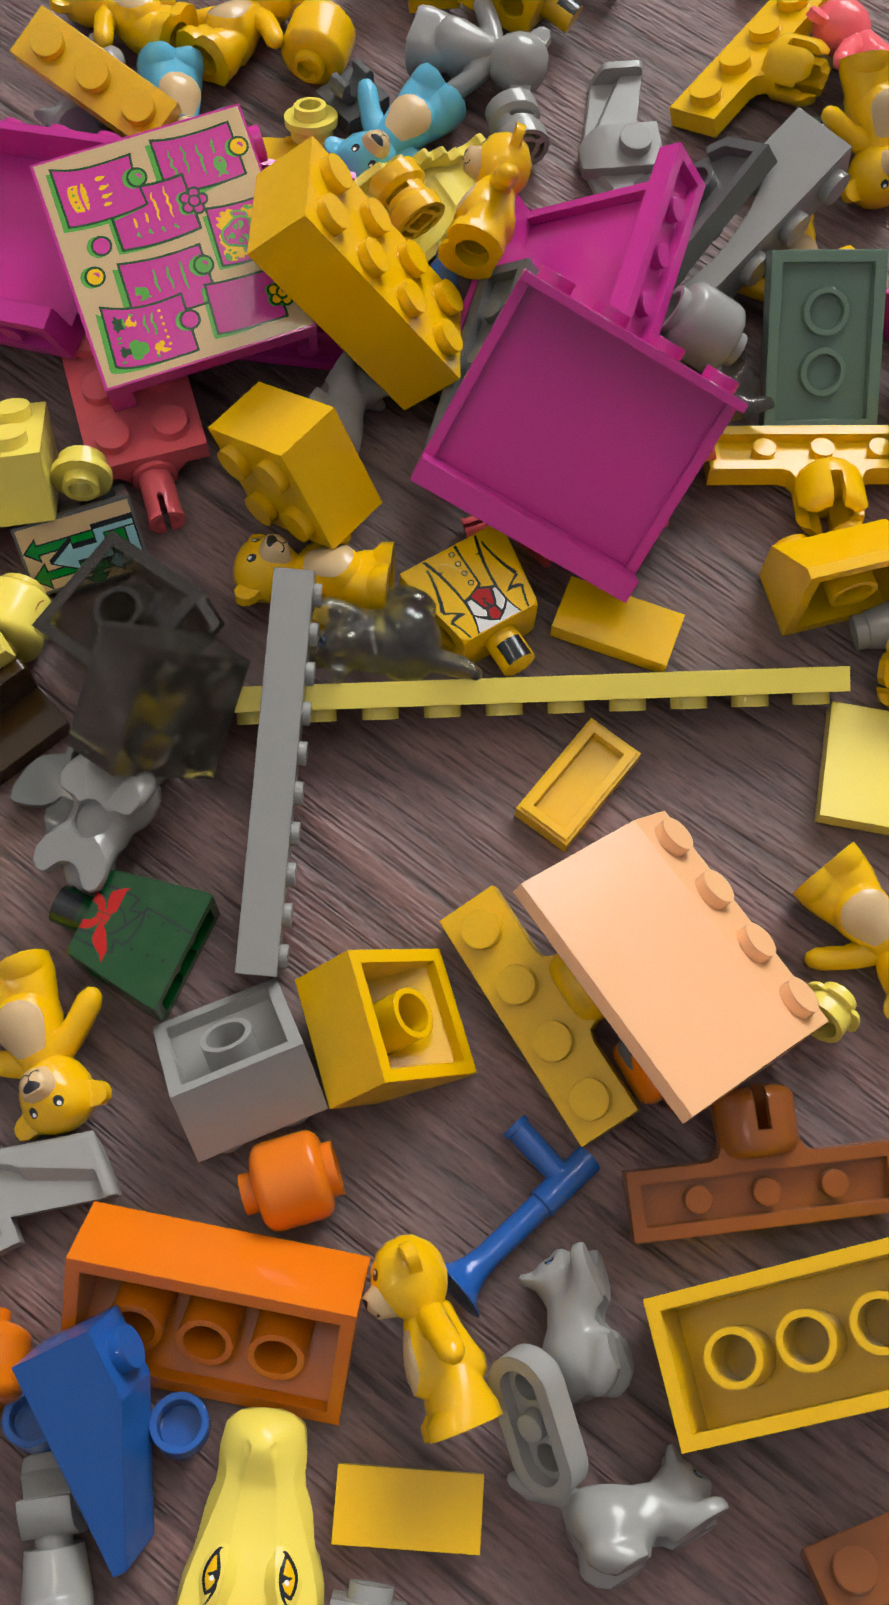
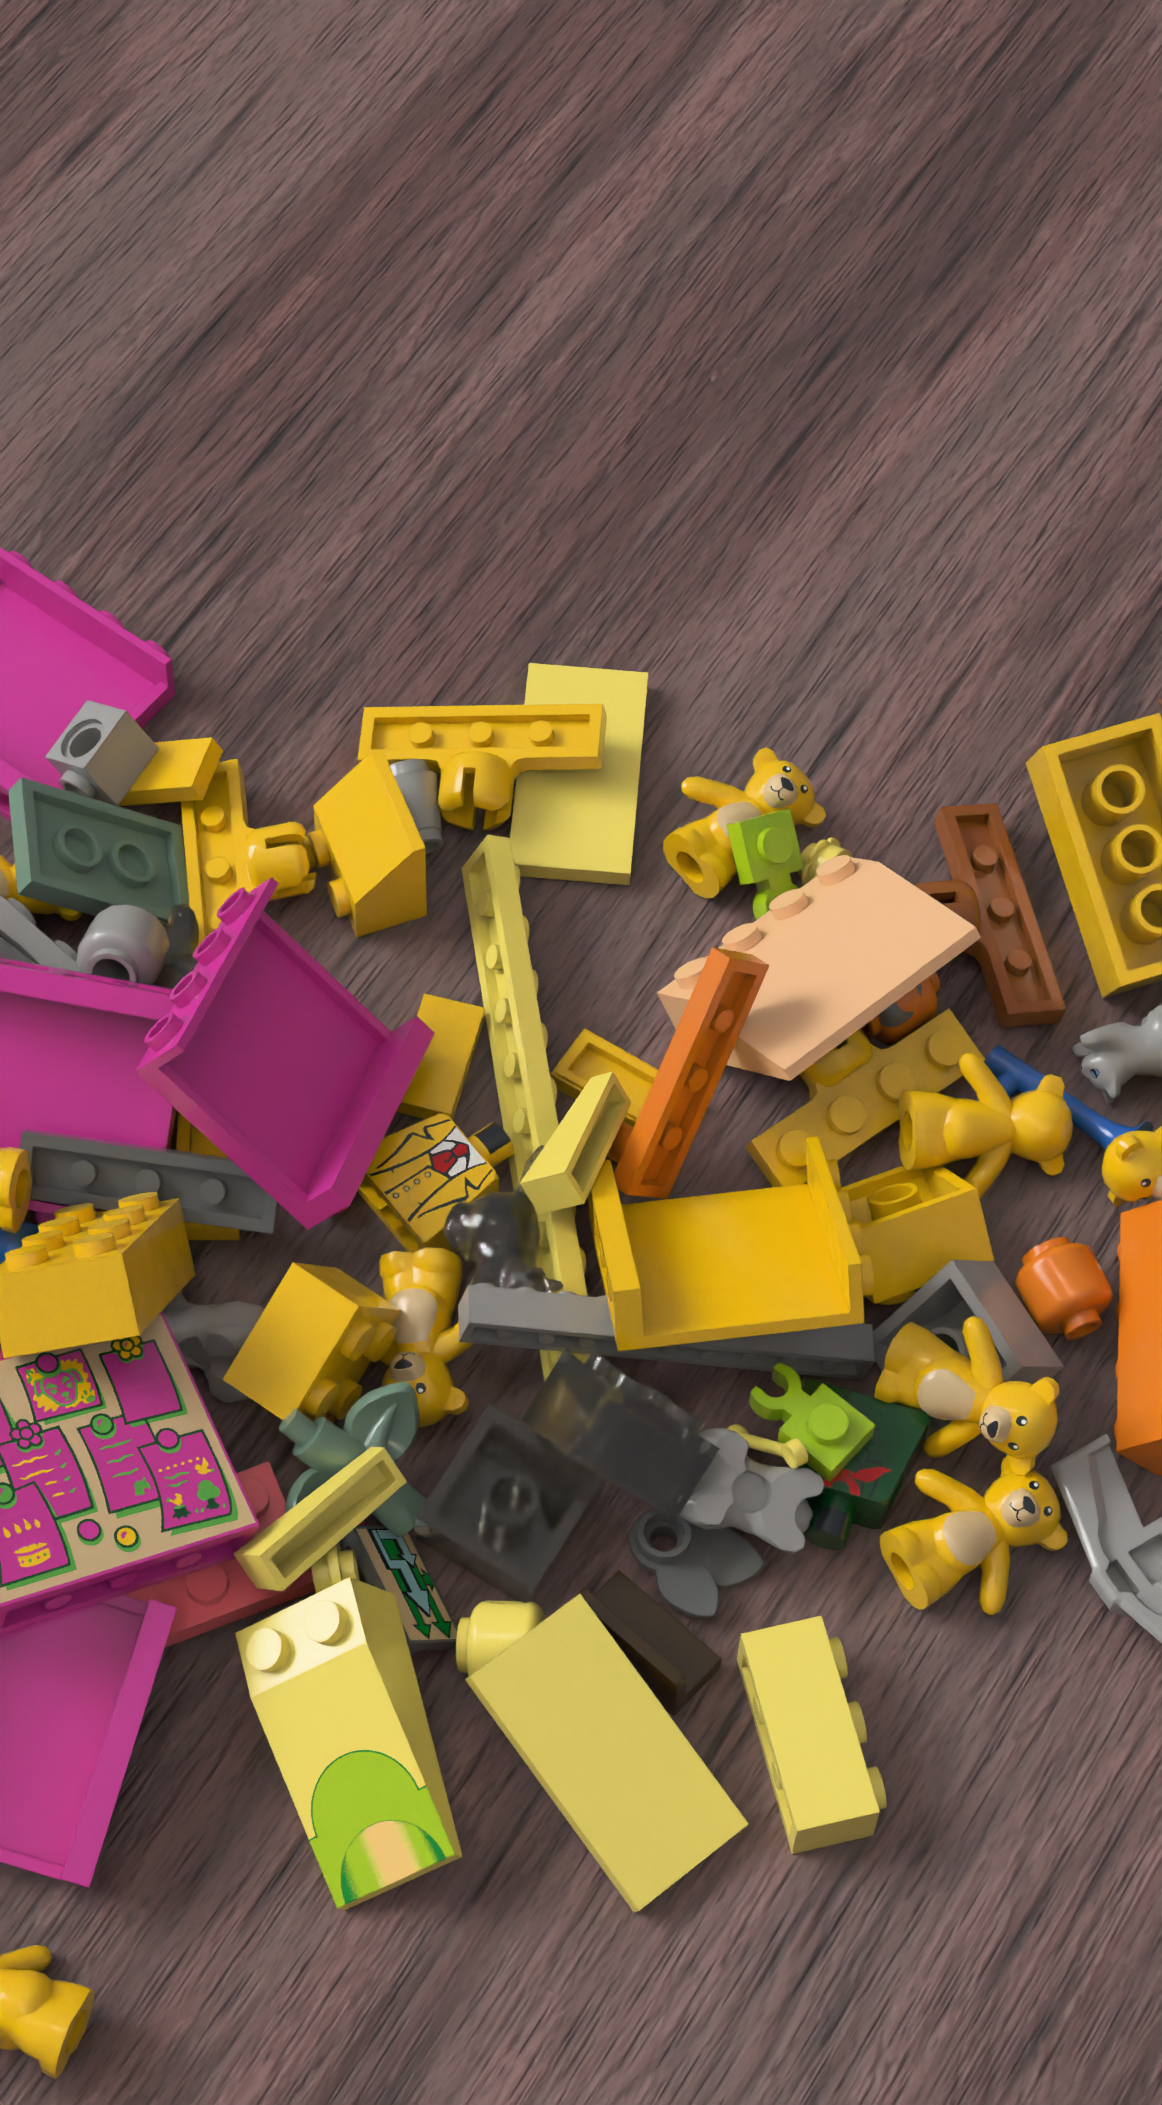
camera: 95 degrees left, 10 degrees down
(112, 448) = (320, 1521): none -> light yellow piece
(149, 894) = (822, 1422): none -> lime plate
(166, 1031) = (949, 1386): none -> yellow piece
(171, 488) = (378, 1419): none -> sand green plant
(187, 844) = (792, 1450): none -> light yellow hinge
(327, 809) = (730, 1260): none -> yellow panel
(481, 706) = (578, 1146): none -> light yellow piece
(488, 1126) = (948, 1129): none -> yellow piece
(545, 806) = (691, 1069): none -> orange piece
(832, 940) = (766, 854): none -> lime plate

